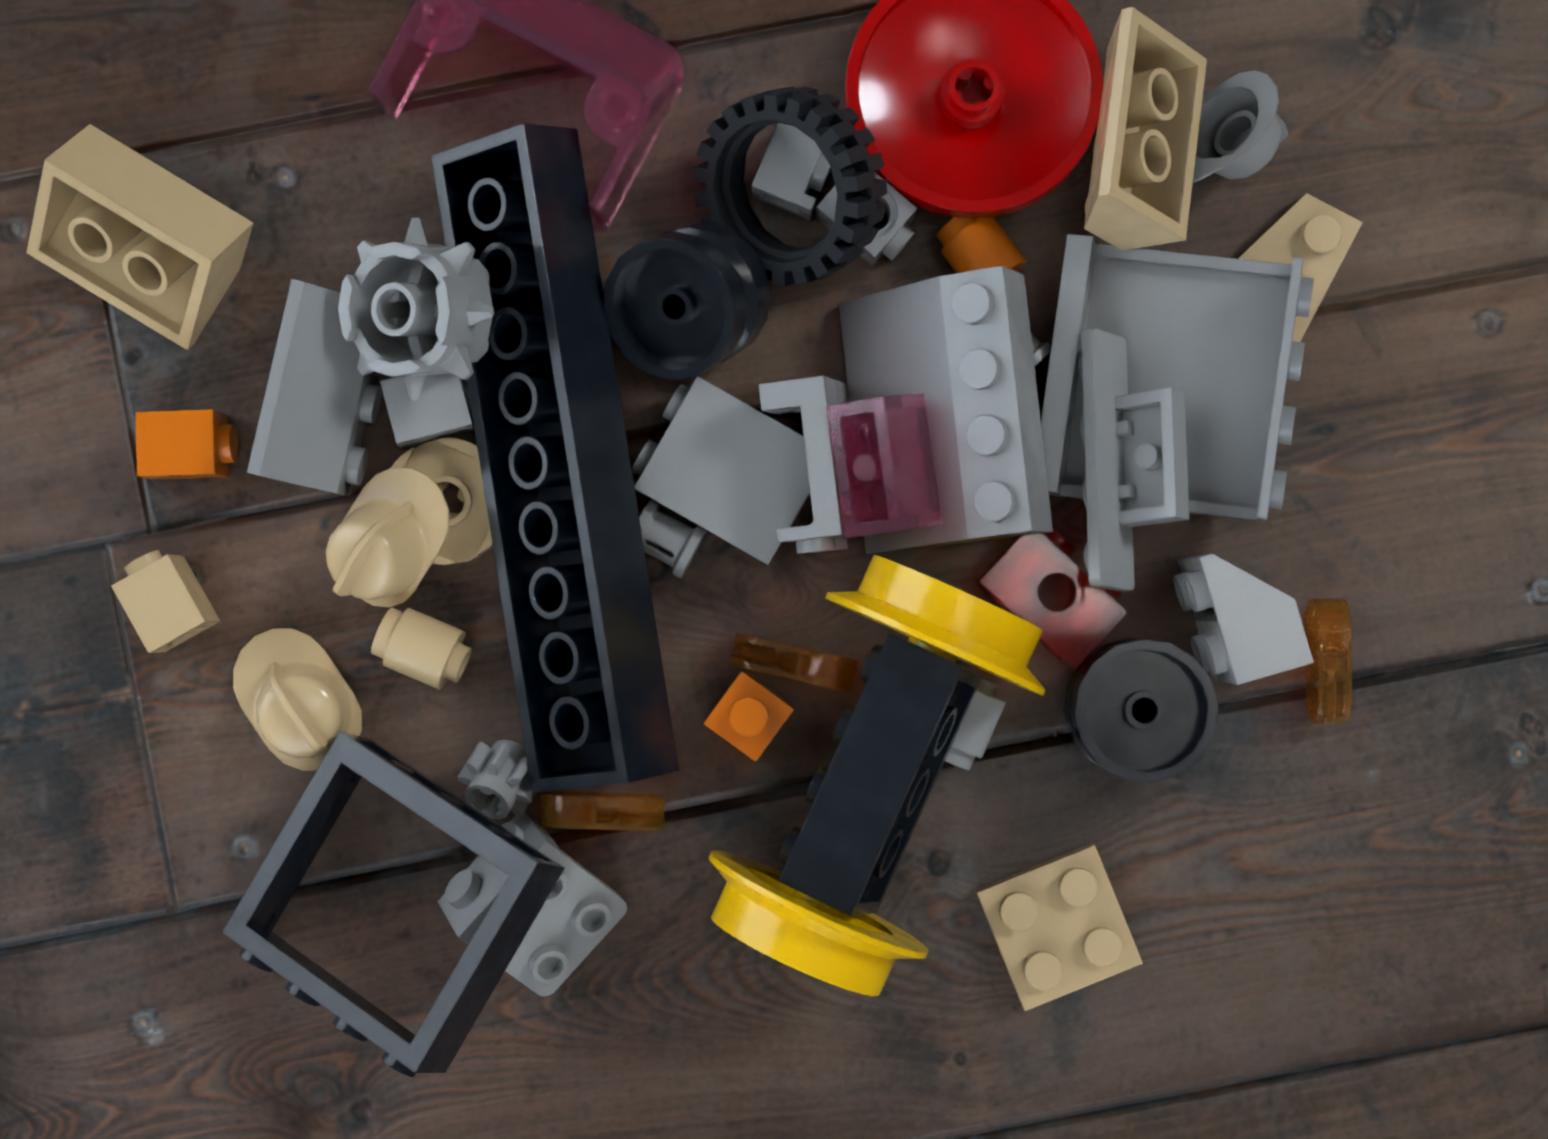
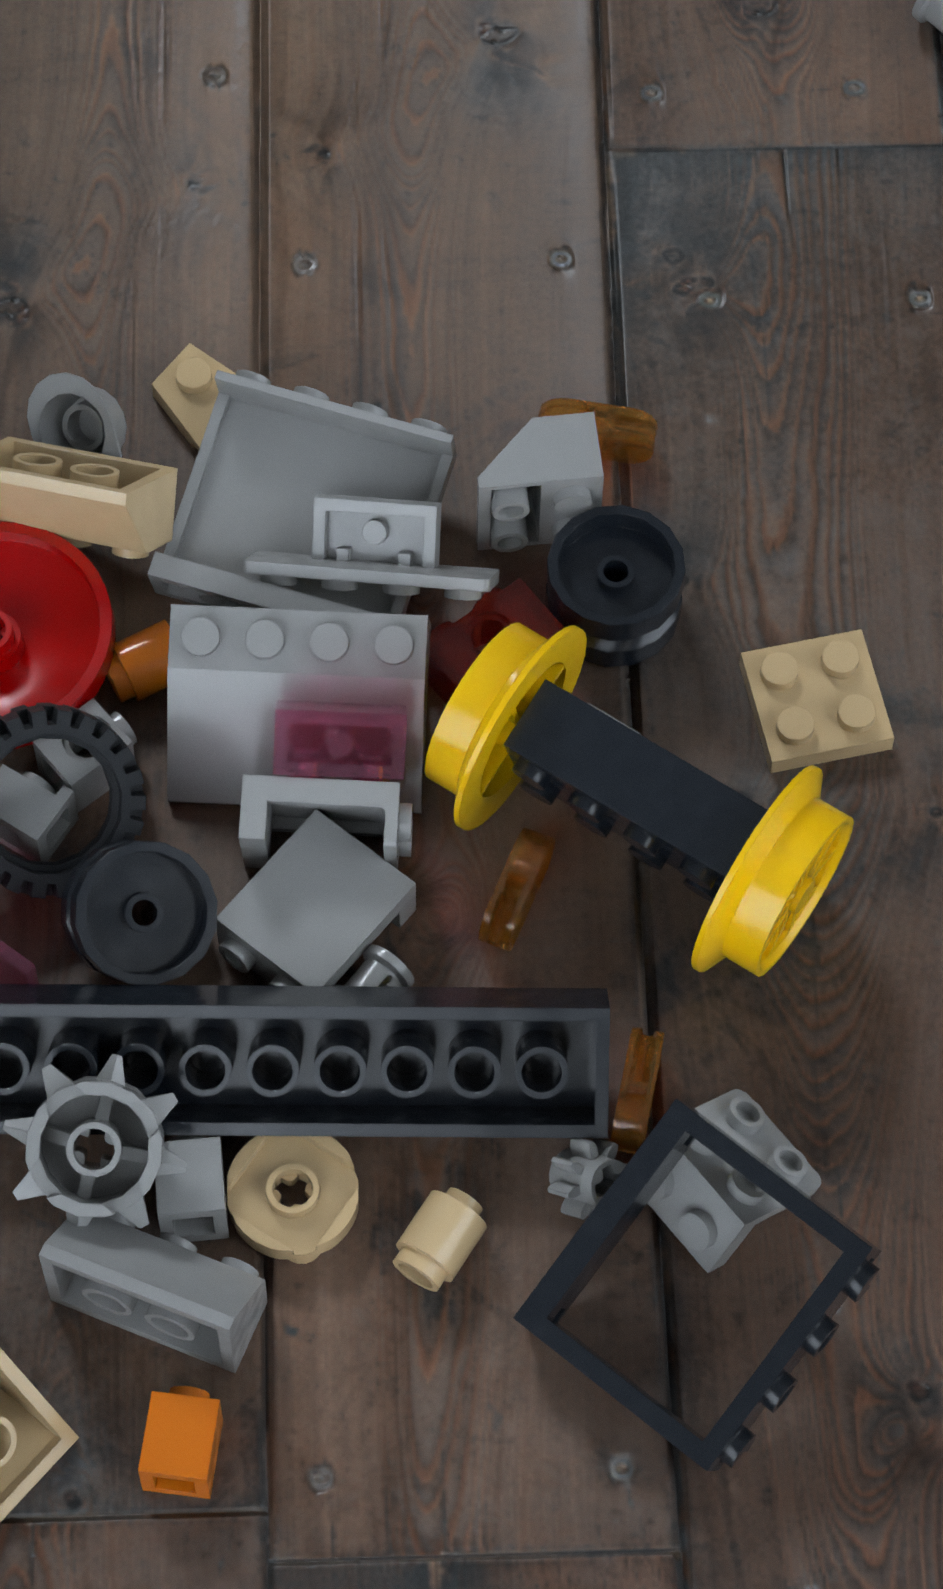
camera: 85 degrees left, 25 degrees down
(164, 601) = (344, 1490): tan brick -> none
(294, 696) = (471, 1385): tan piece -> none
(388, 537) = (320, 1248): tan piece -> none
(749, 715) = (562, 933): orange brick -> none

